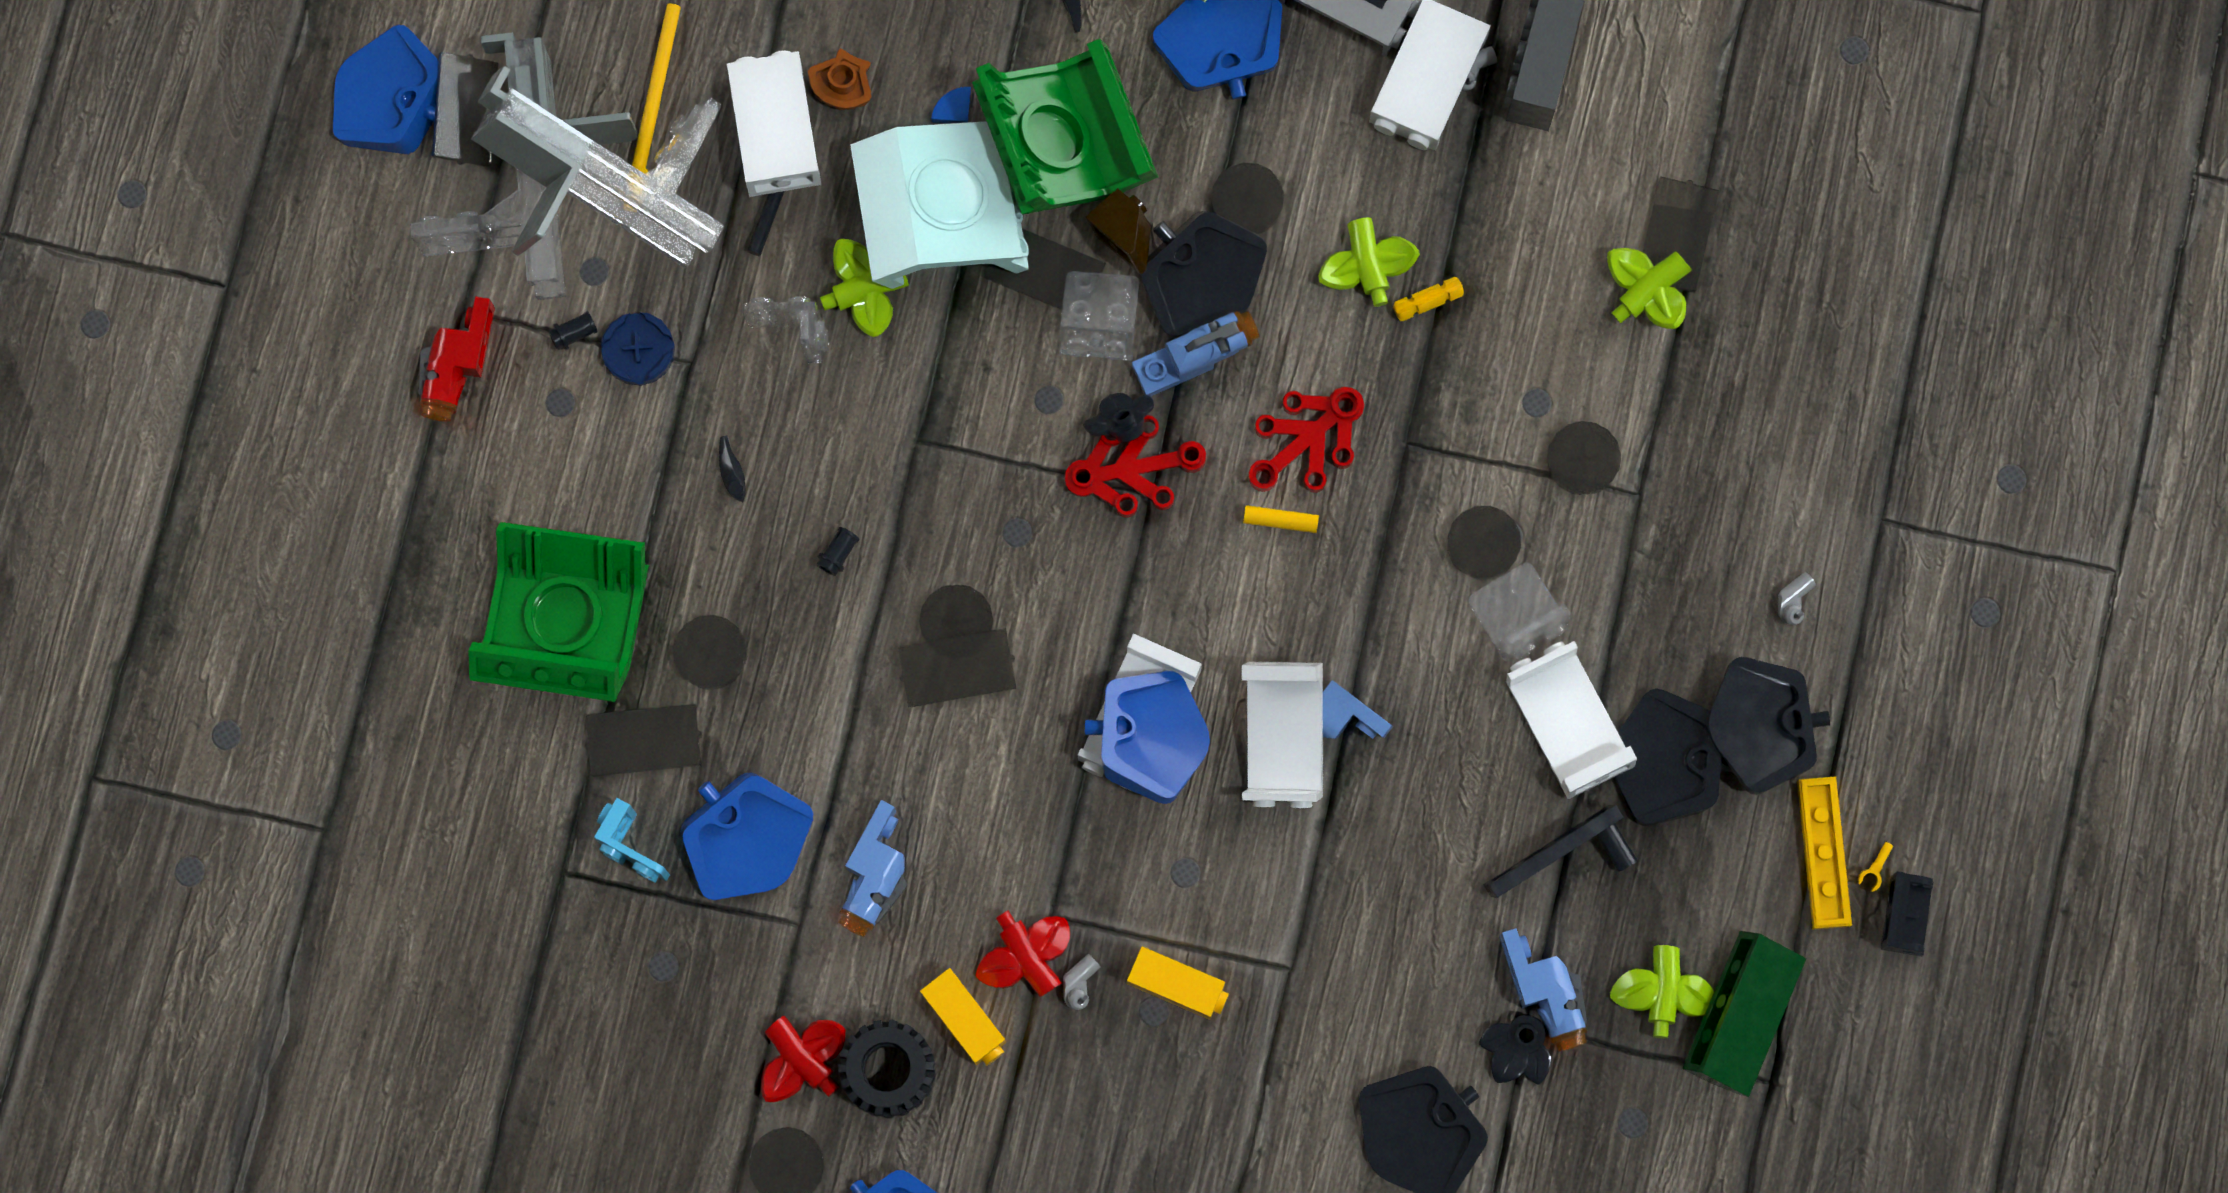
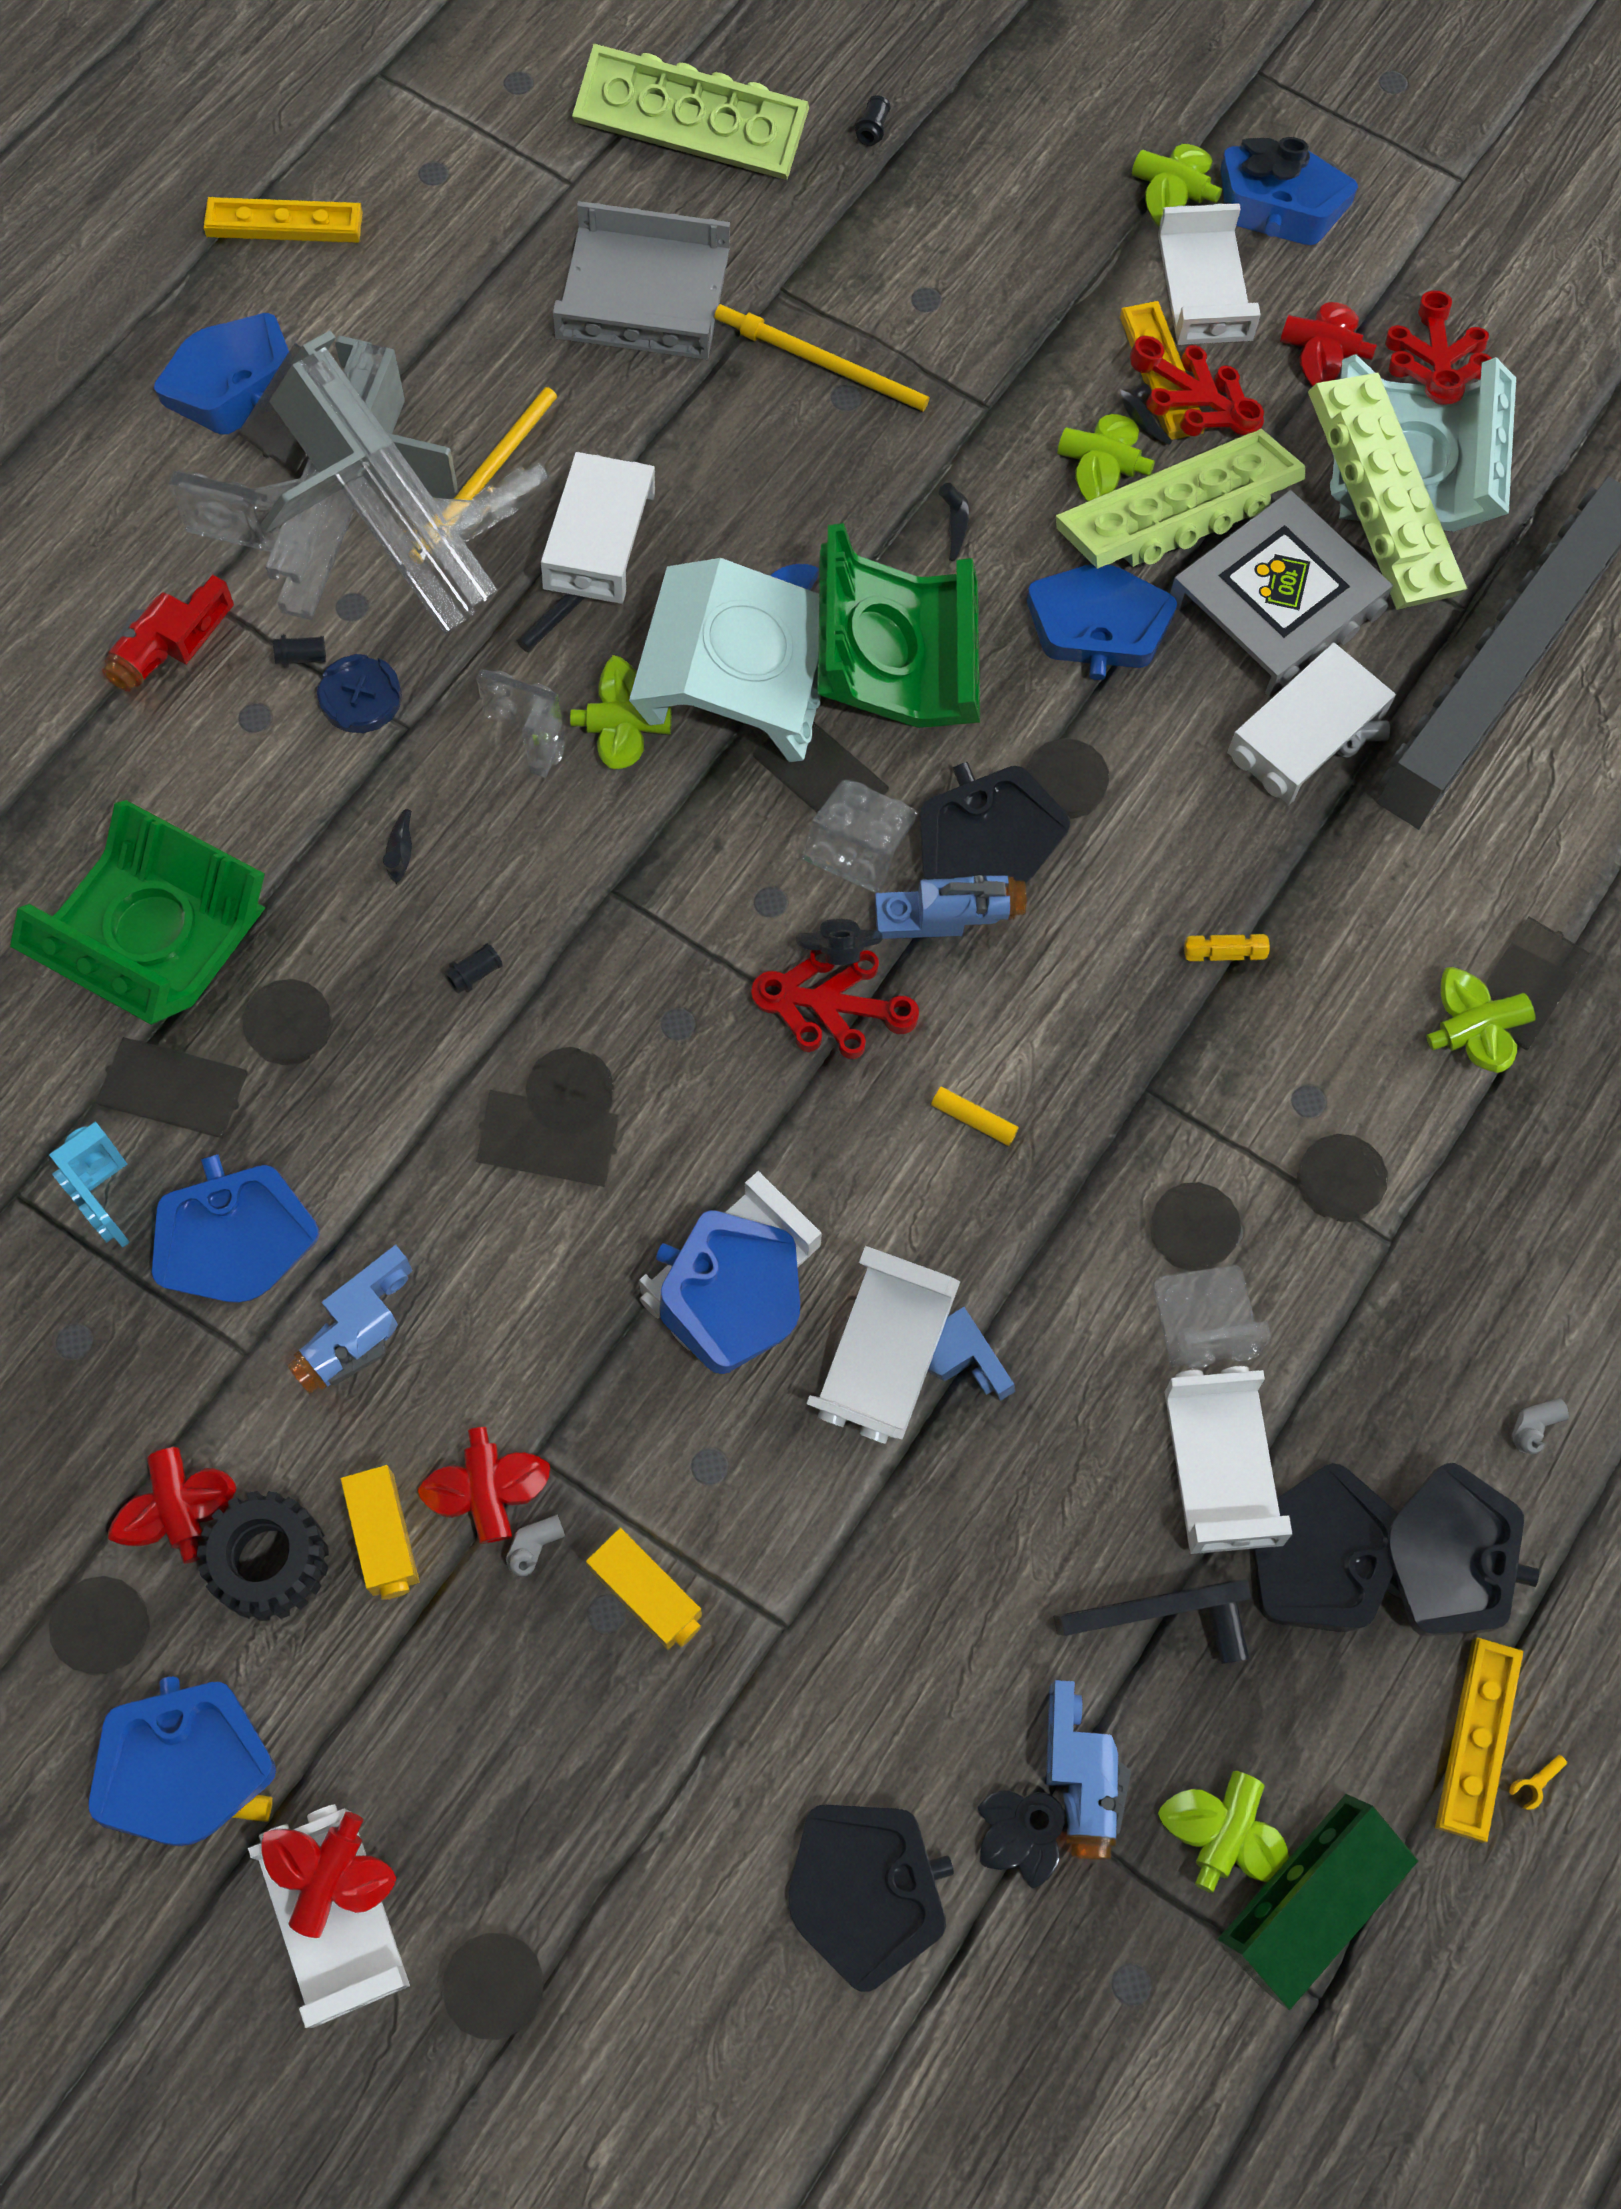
camera: 15 degrees right, 10 degrees down
(841, 81) = (687, 518): dark orange animal -> none
(1123, 228) = (921, 753): dark brown slope -> none
(1310, 435) = (1040, 1039): red plant -> none
(1368, 261) = (1174, 885): lime plant -> none
(1907, 913) = (1559, 1854): black hinge -> none

